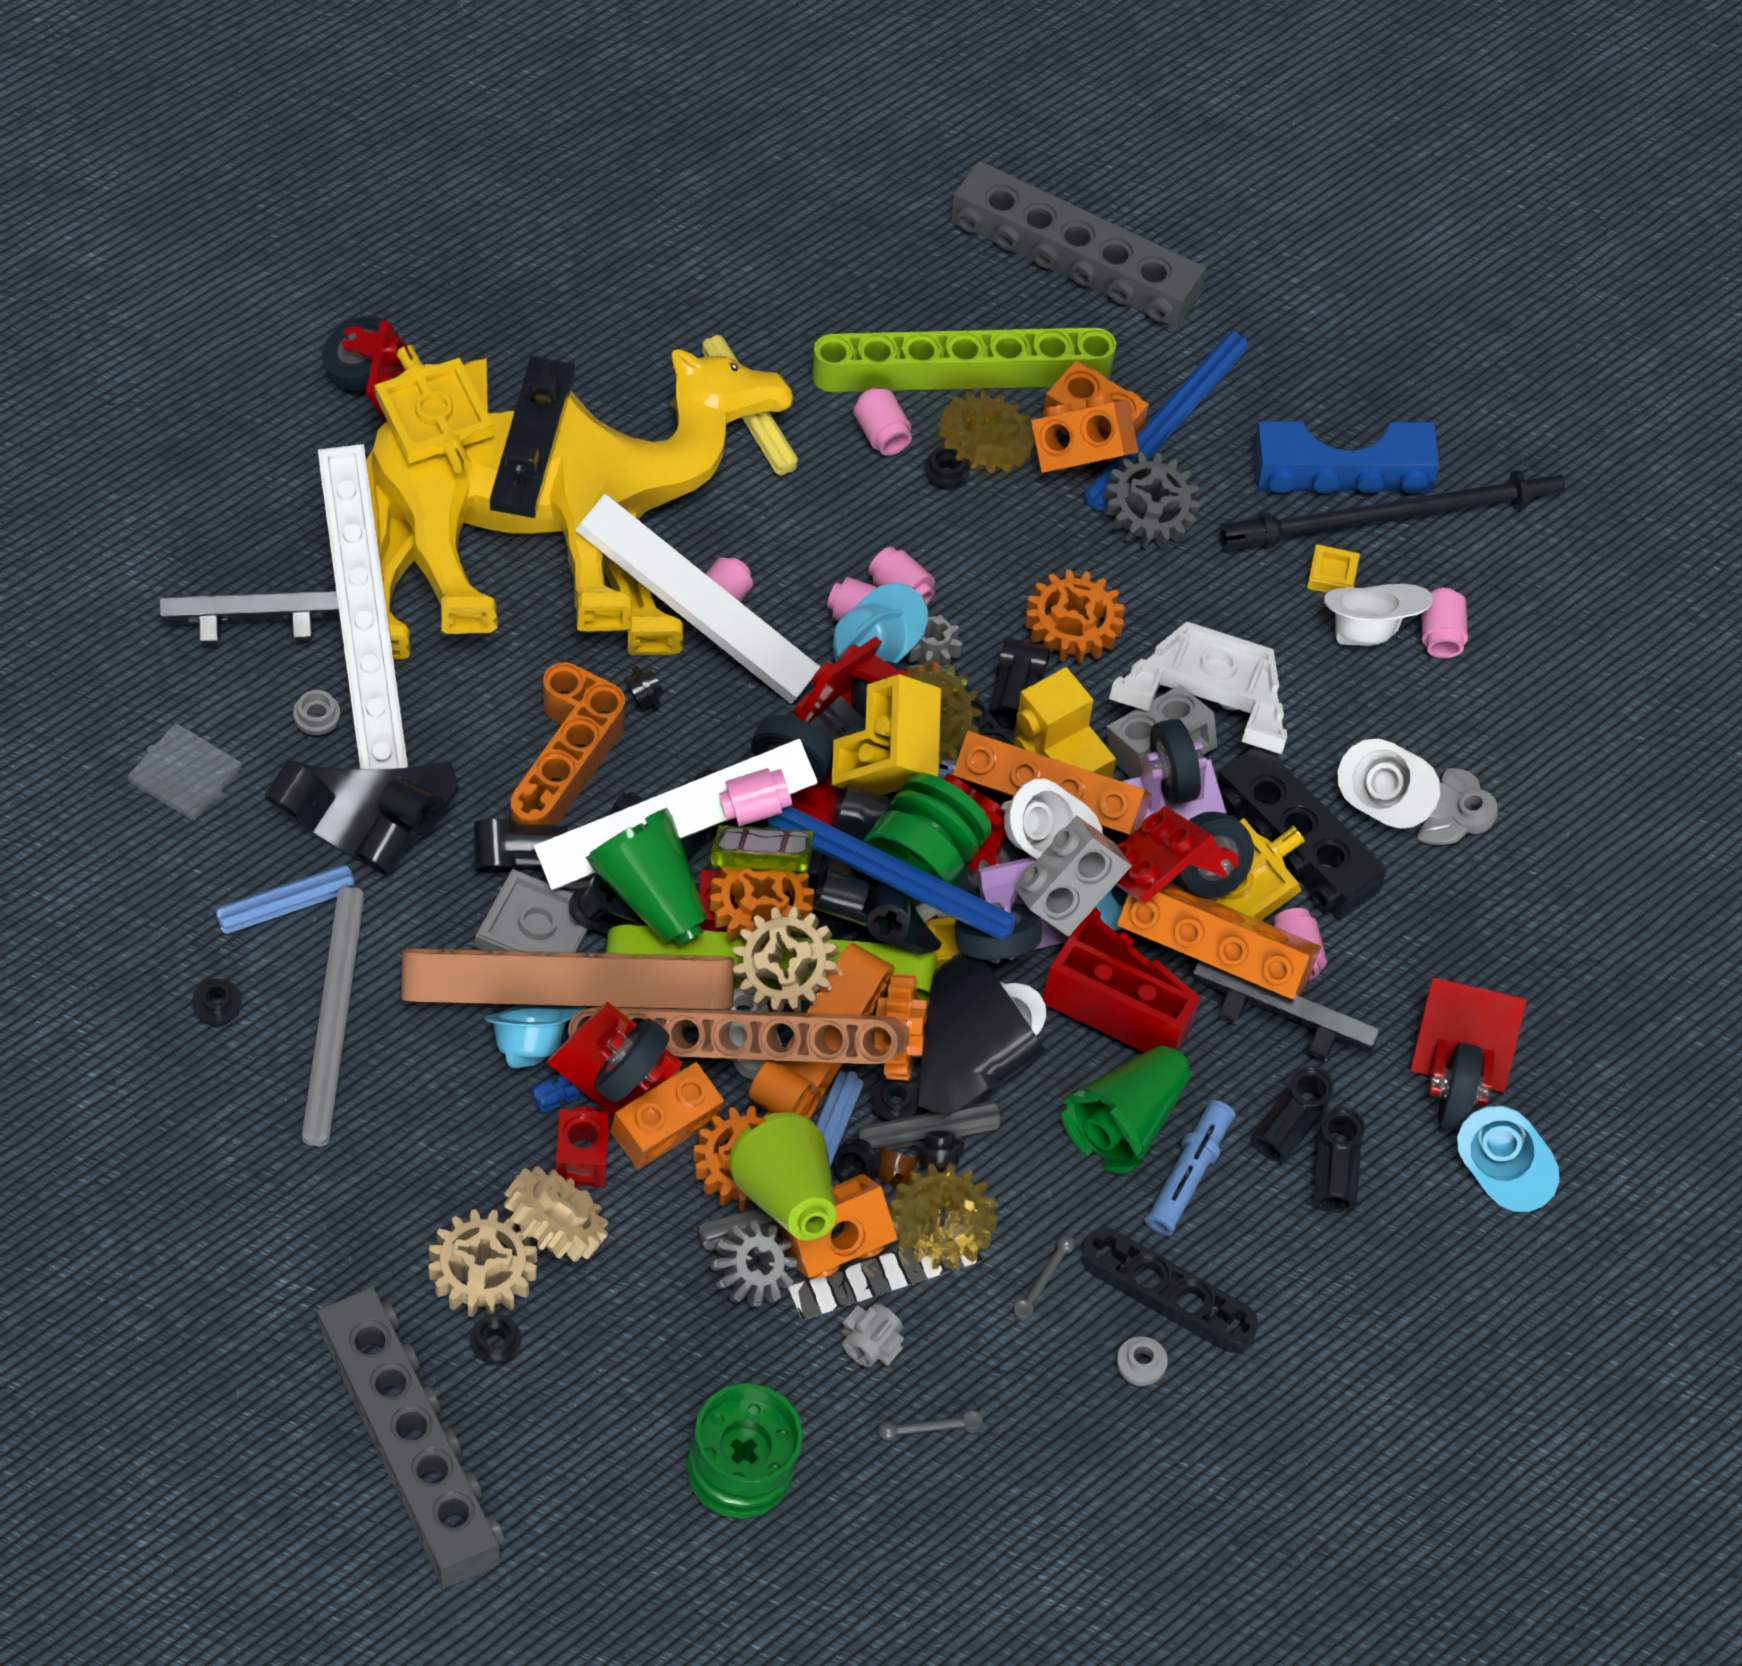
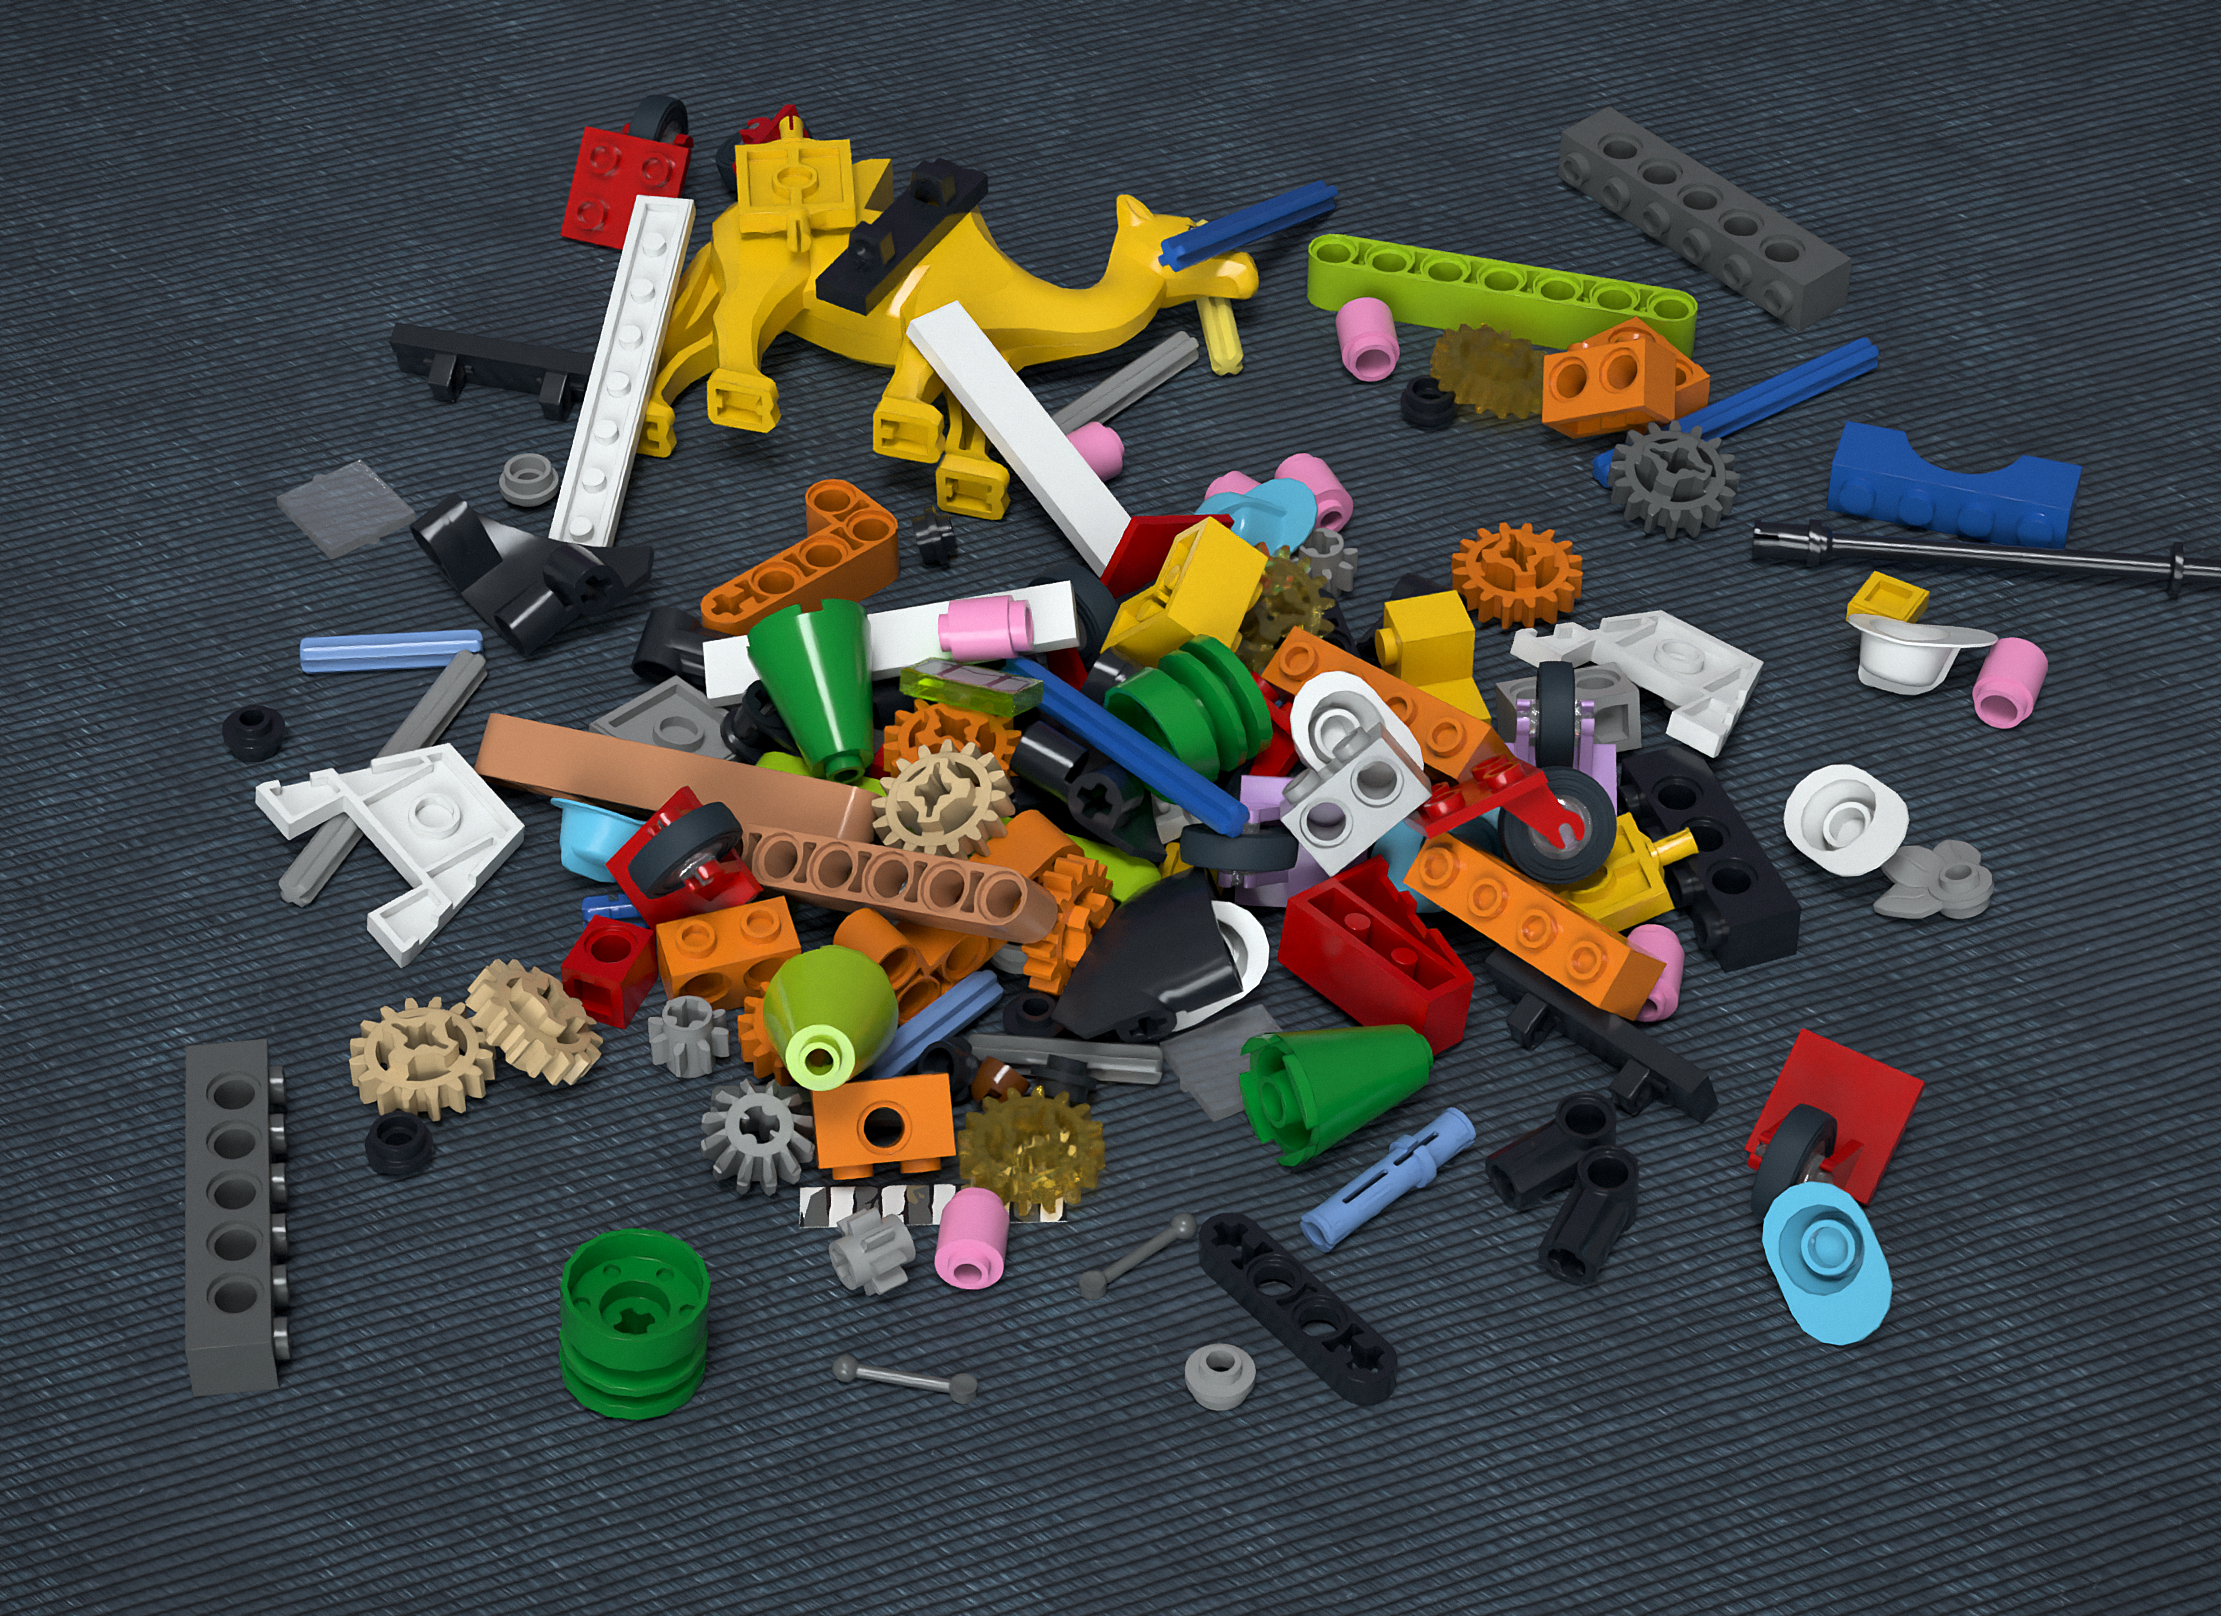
camera: 25 degrees right, 15 degrees down
(275, 408) = (617, 166): none -> red plate
(391, 1052) = (425, 817): none -> white wing
(659, 1201) = (689, 1036): none -> light grey gear
(721, 507) = (1129, 383): none -> light grey axle
(768, 348) = (1247, 226): none -> blue axle
(933, 1302) = (972, 1239): none -> bright pink brick
(1037, 1093) = (1211, 1060): none -> clear piece

